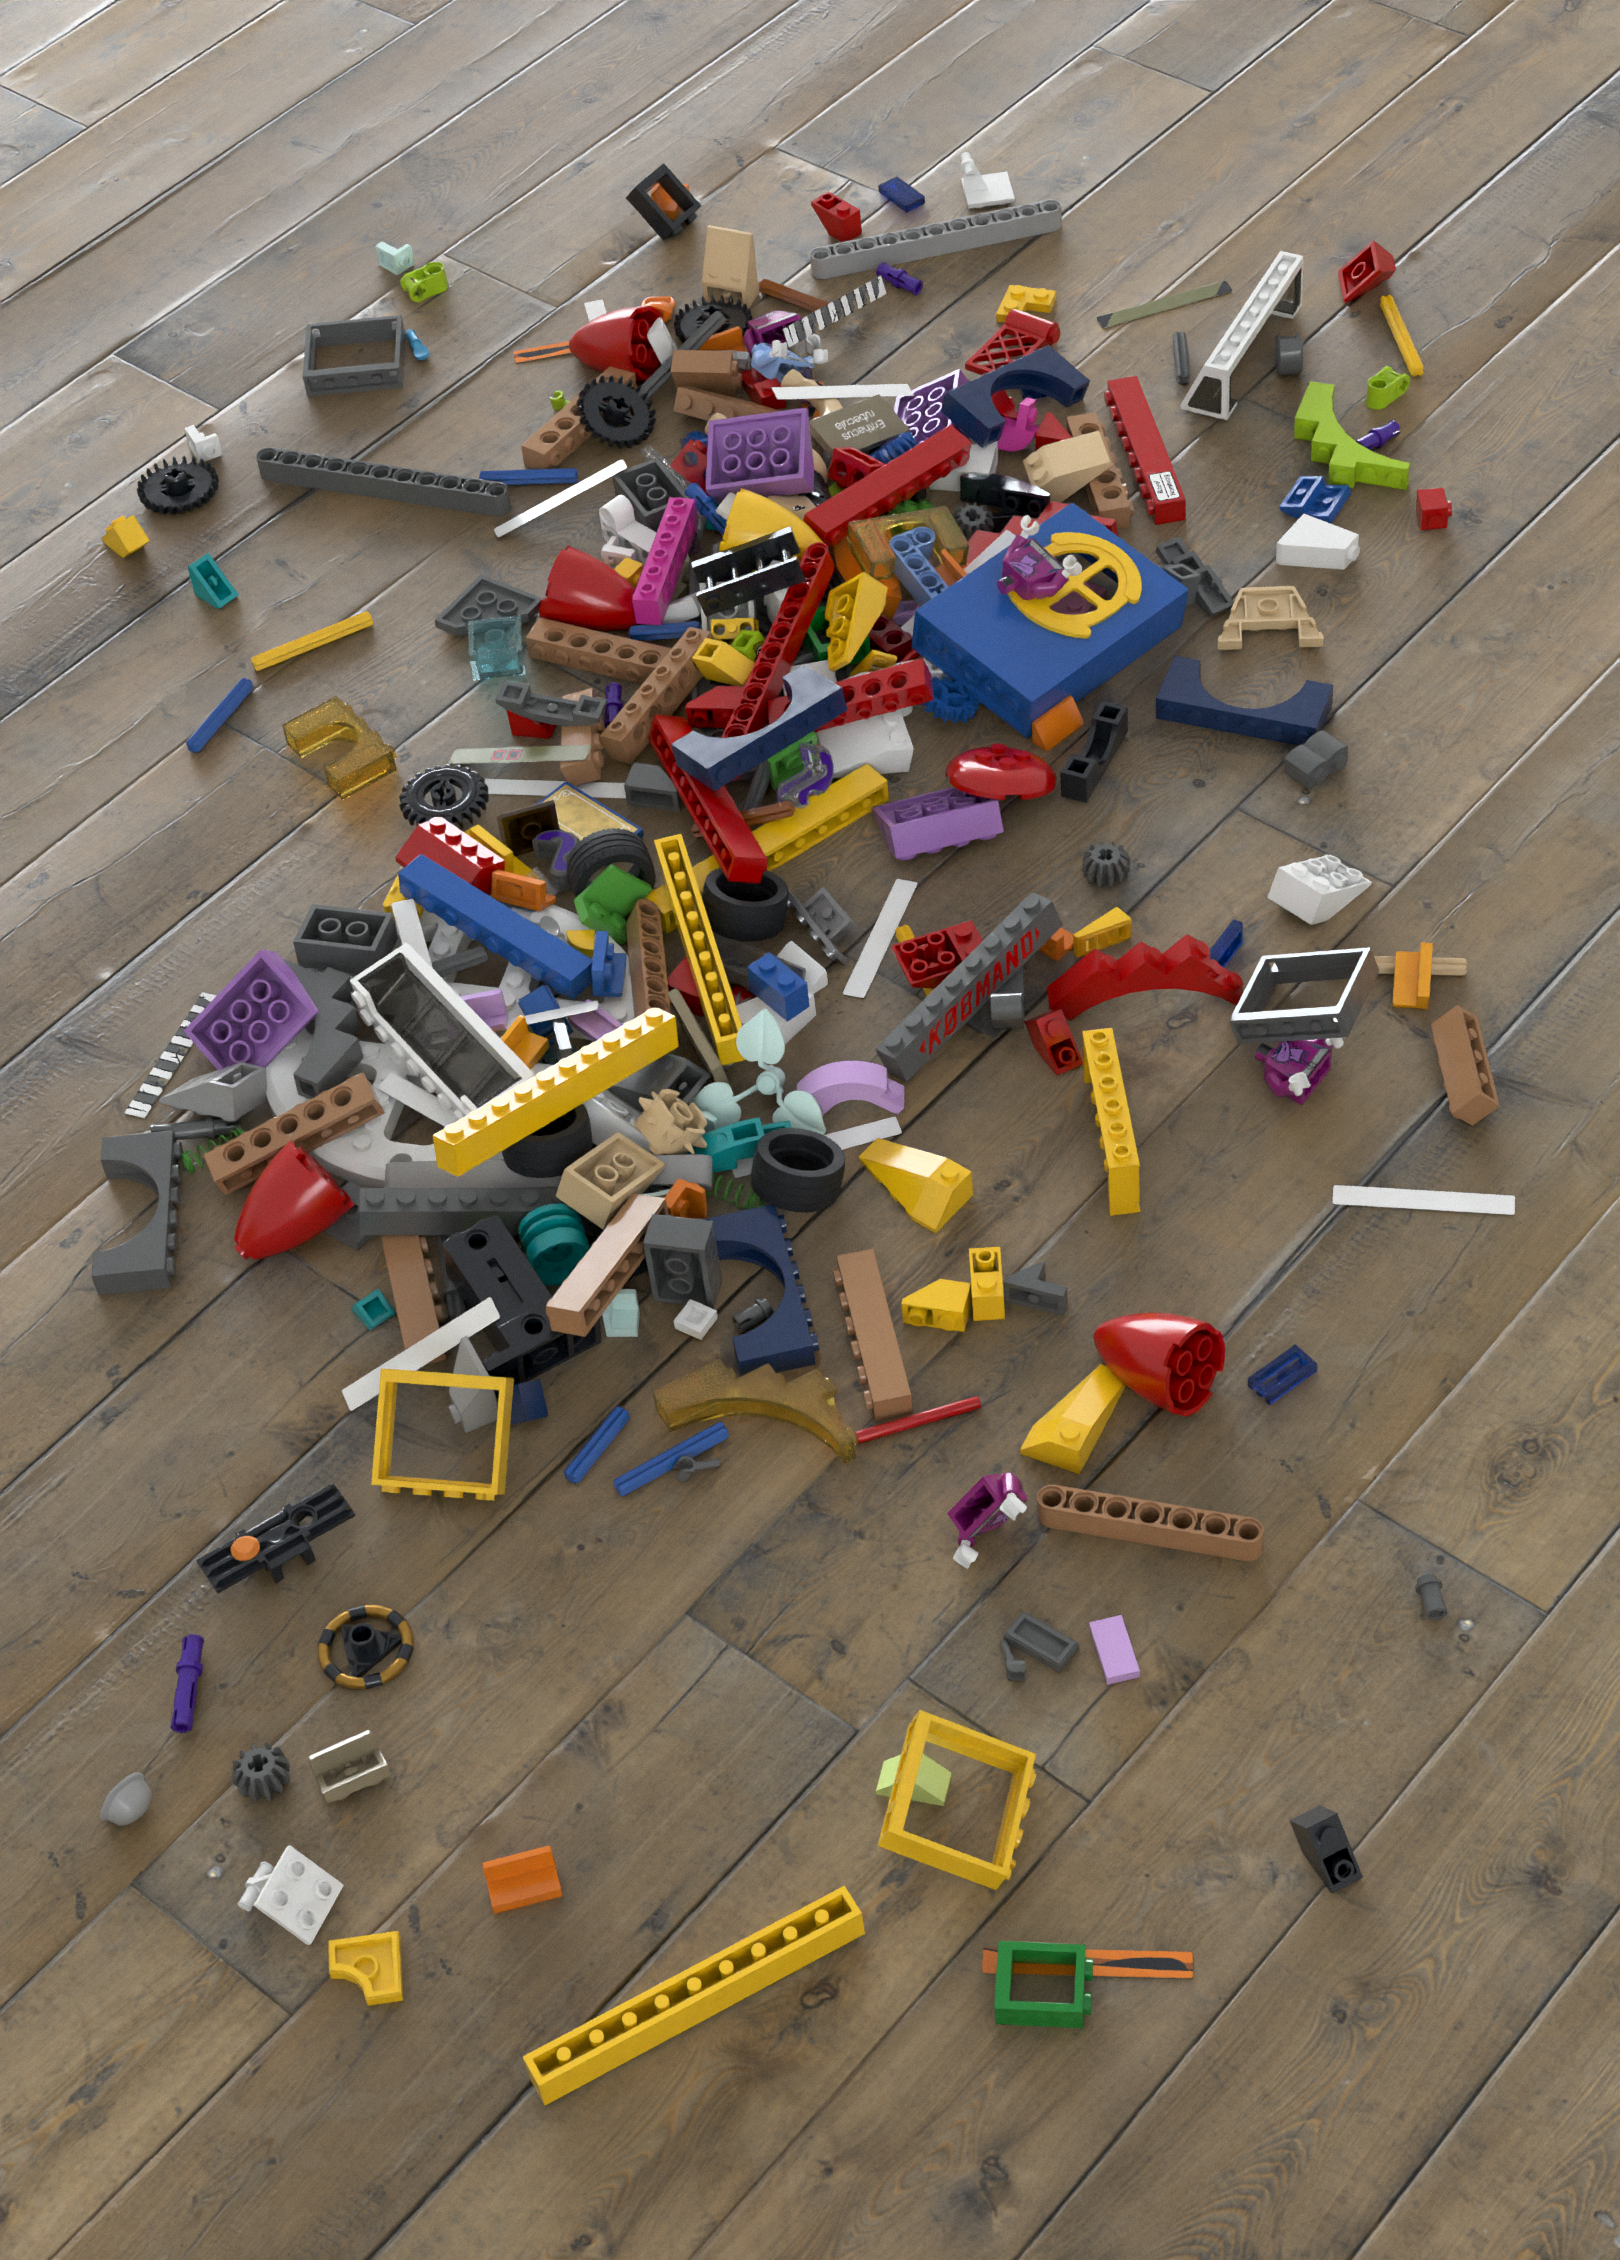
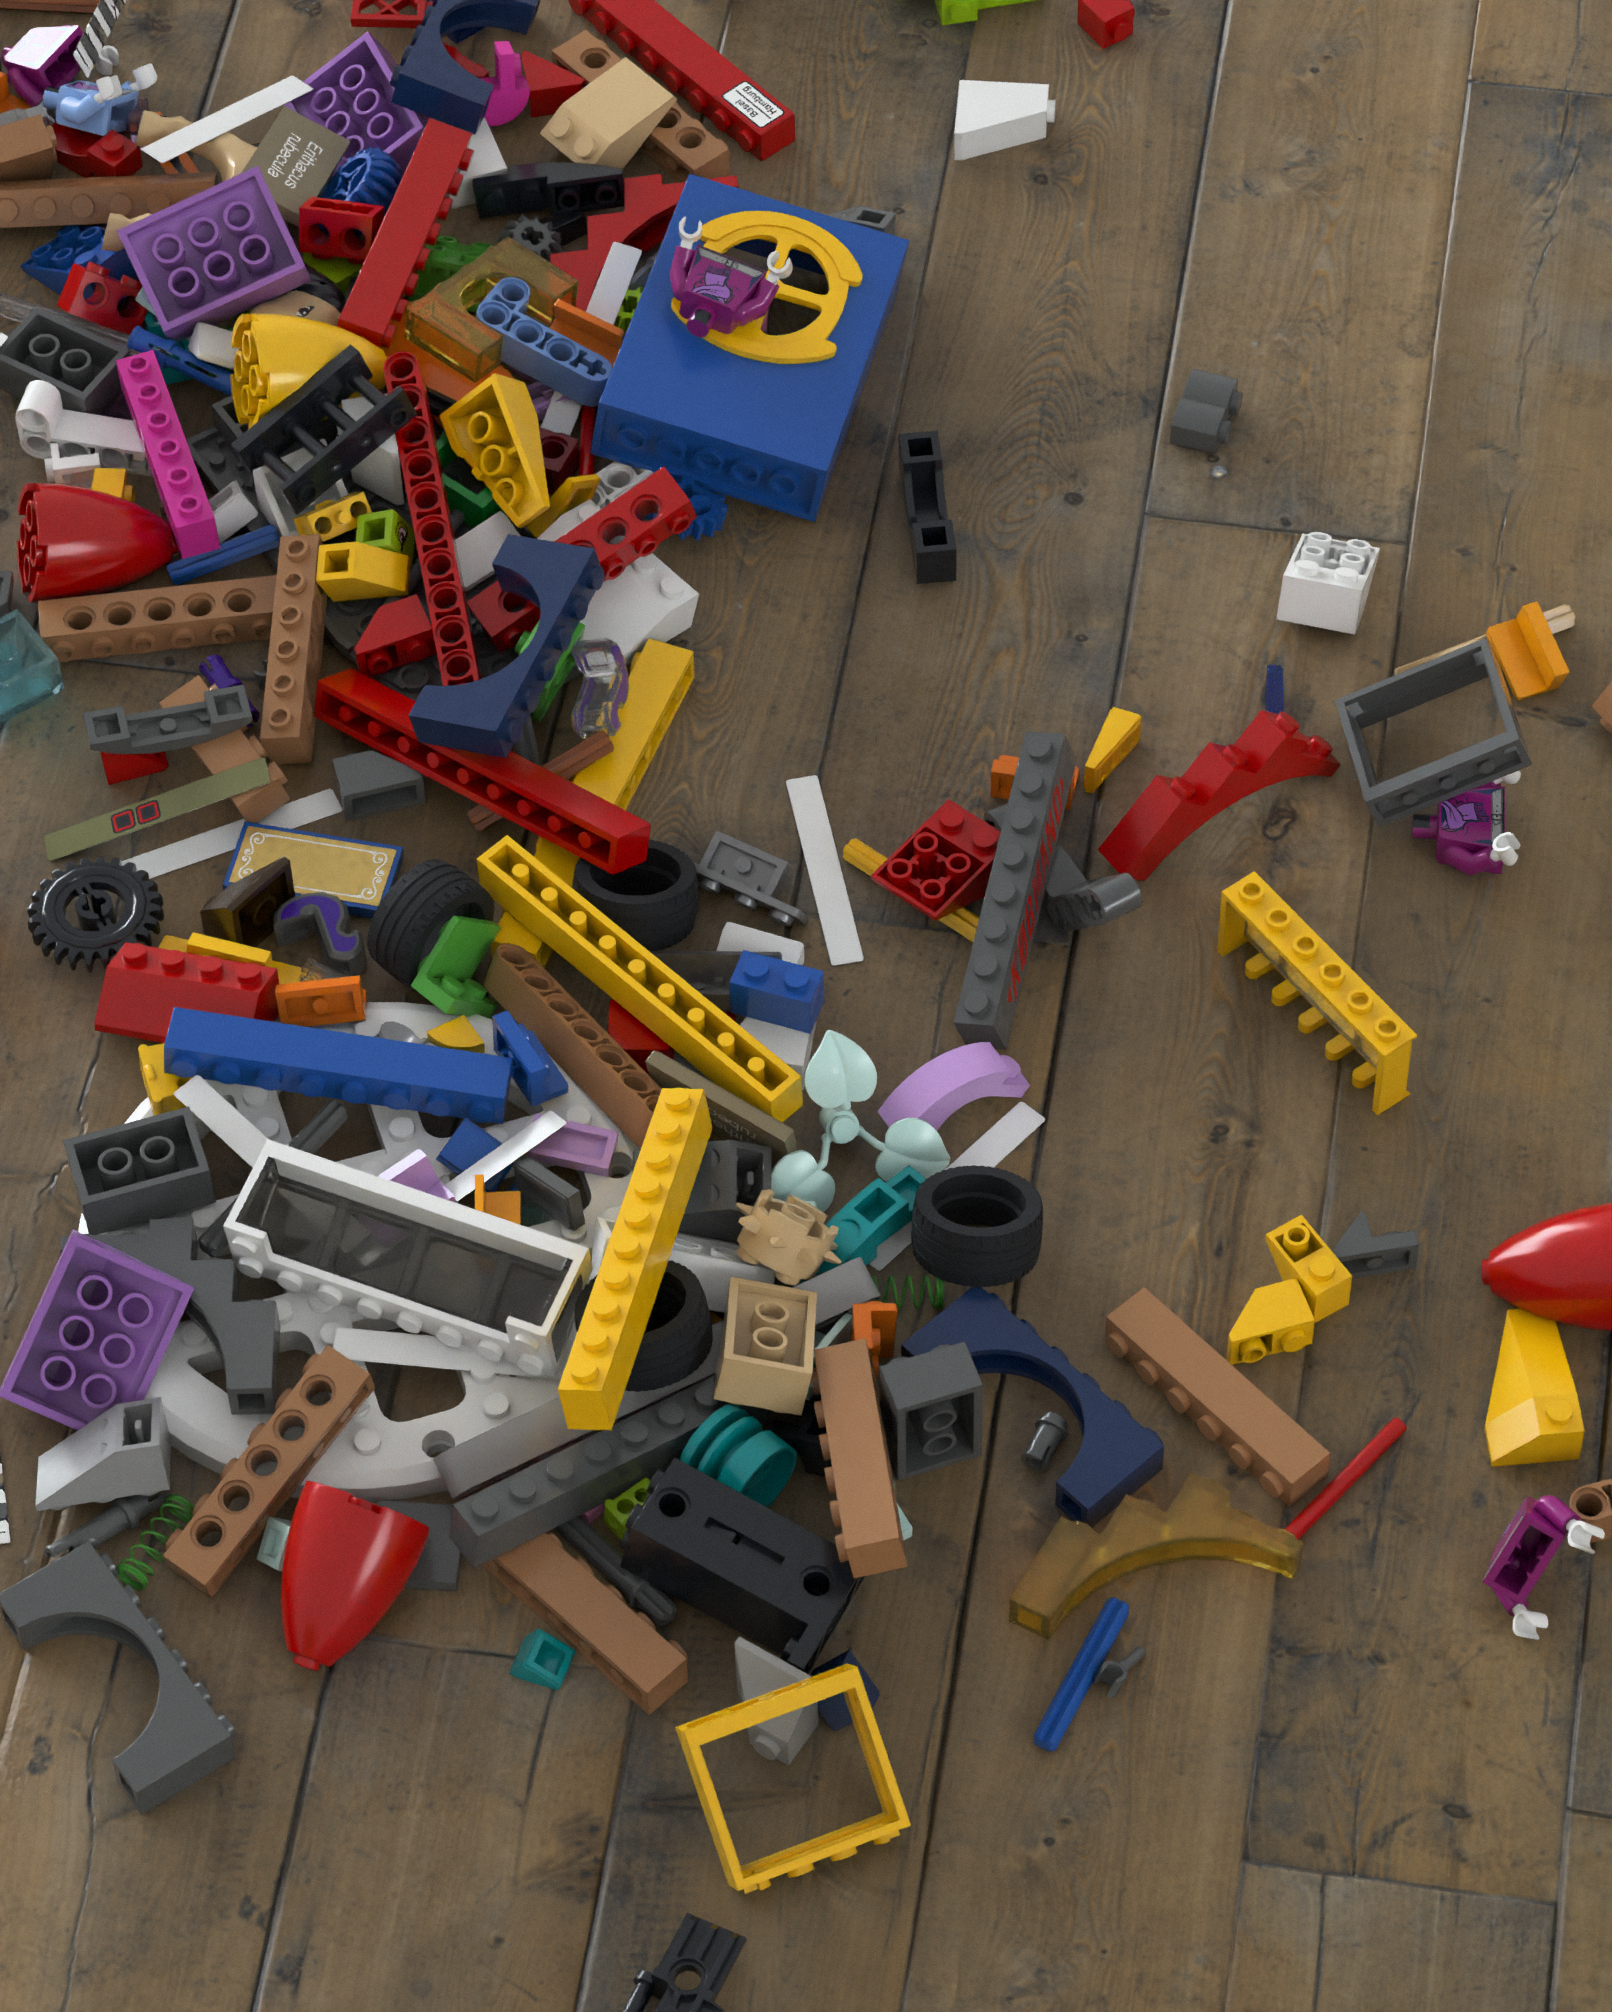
camera: 35 degrees left, 5 degrees up
(424, 1351) = (679, 1689): white sticker -> none
(596, 1445) = (974, 1701): blue axle -> none
(695, 1319) = (978, 1479): white plate -> none
(922, 1182) = (1126, 1171): yellow wedge -> none
(937, 821) = (788, 677): medium lavender slope -> none
(1001, 772) = (834, 584): red brick -> none
(1054, 1041) = (1161, 920): red slope -> none
(1056, 724) = (844, 489): orange slope -> none
(1106, 864) = (1047, 655): dark grey gear -> none
(1211, 592) = (830, 196): dark grey slope -> none
(1269, 609) = (1002, 227): tan wing -> none
(1291, 722) = (989, 394): dark blue arch -> none
(1315, 499) = (945, 55): blue slope -> none

